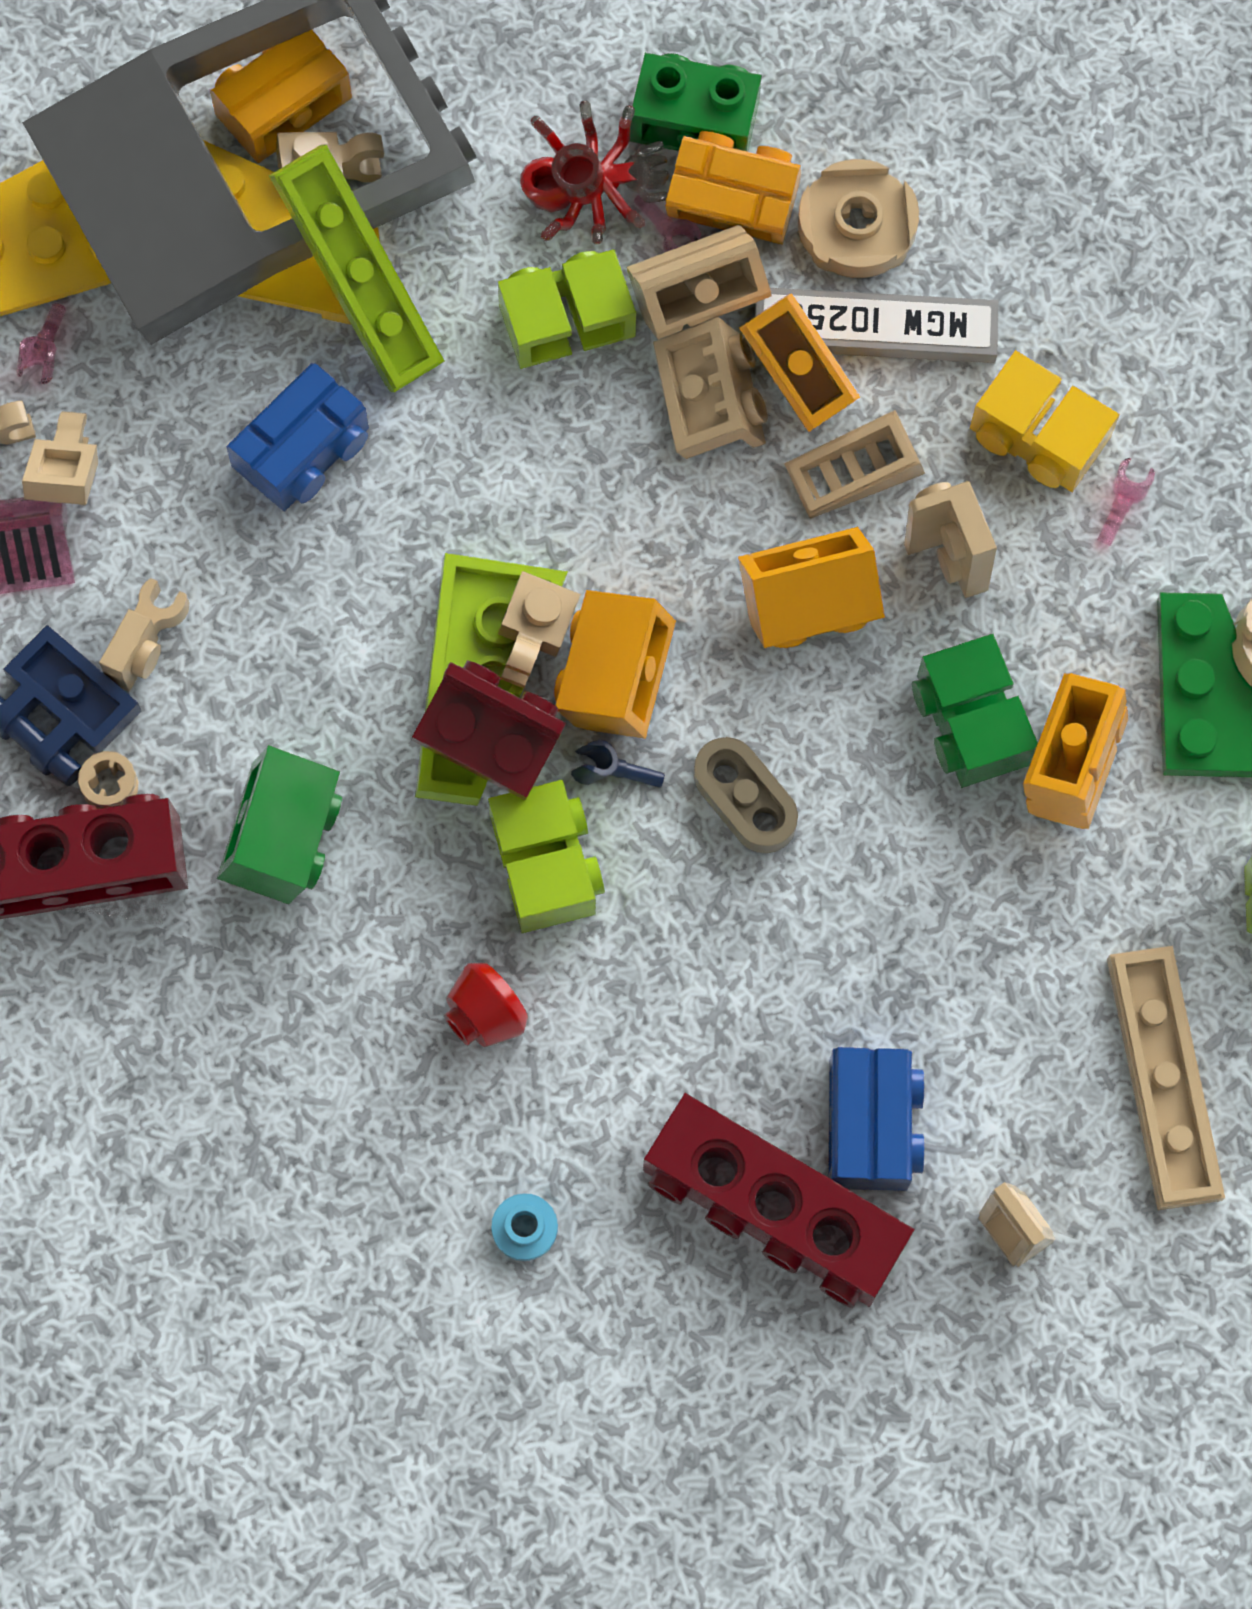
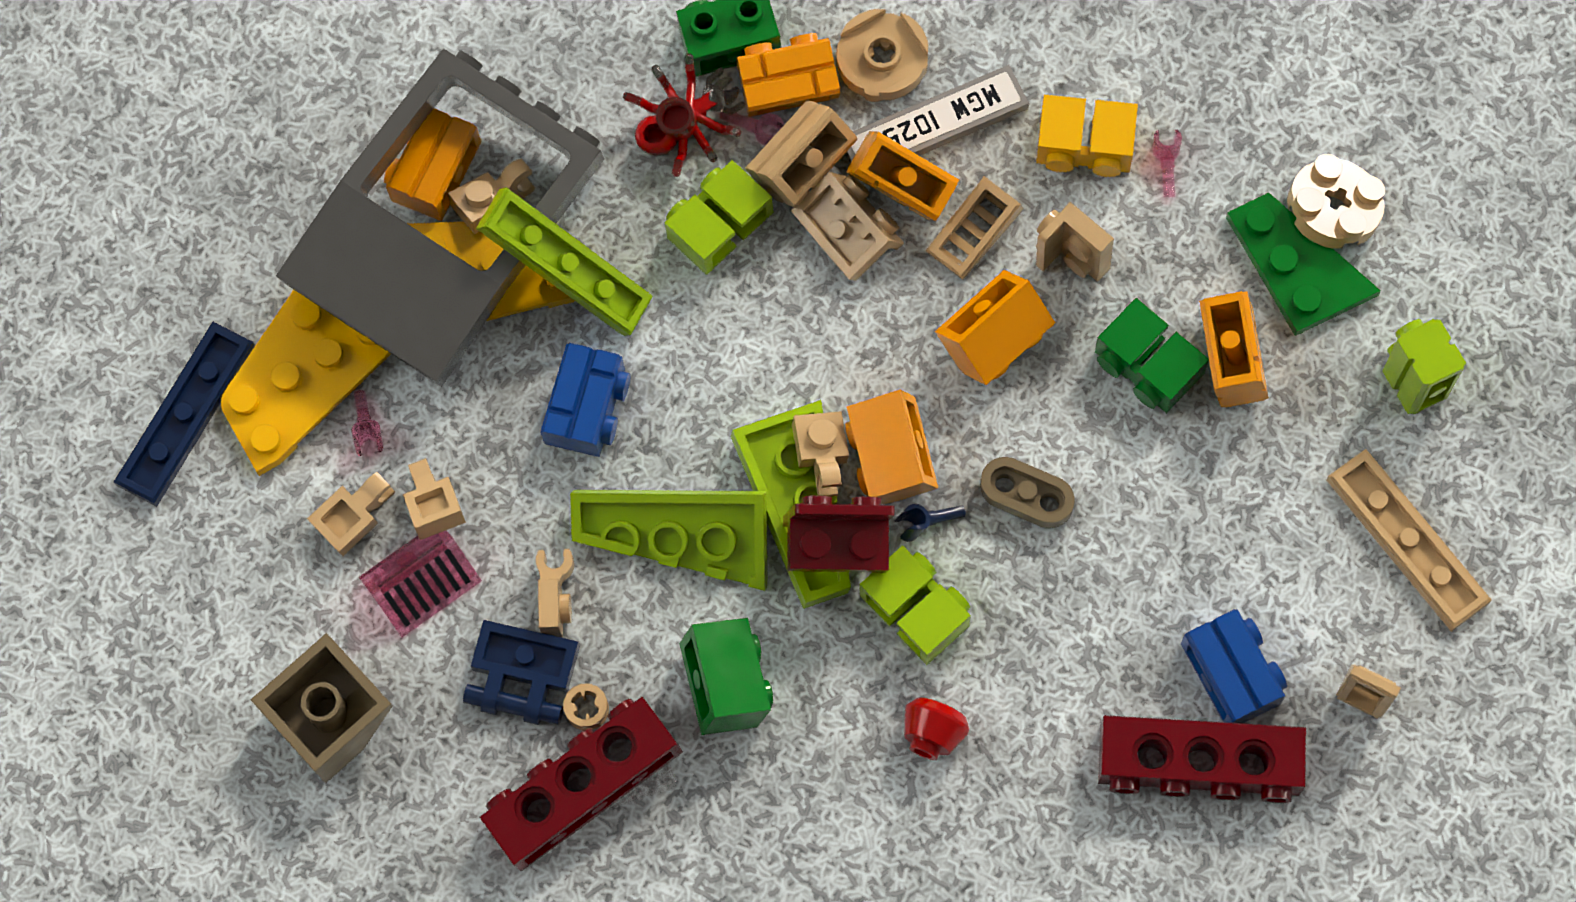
camera: 20 degrees left, 0 degrees up
(334, 640) = (682, 528): none -> lime wing
(524, 1247) = (1038, 878): medium azure plate -> none

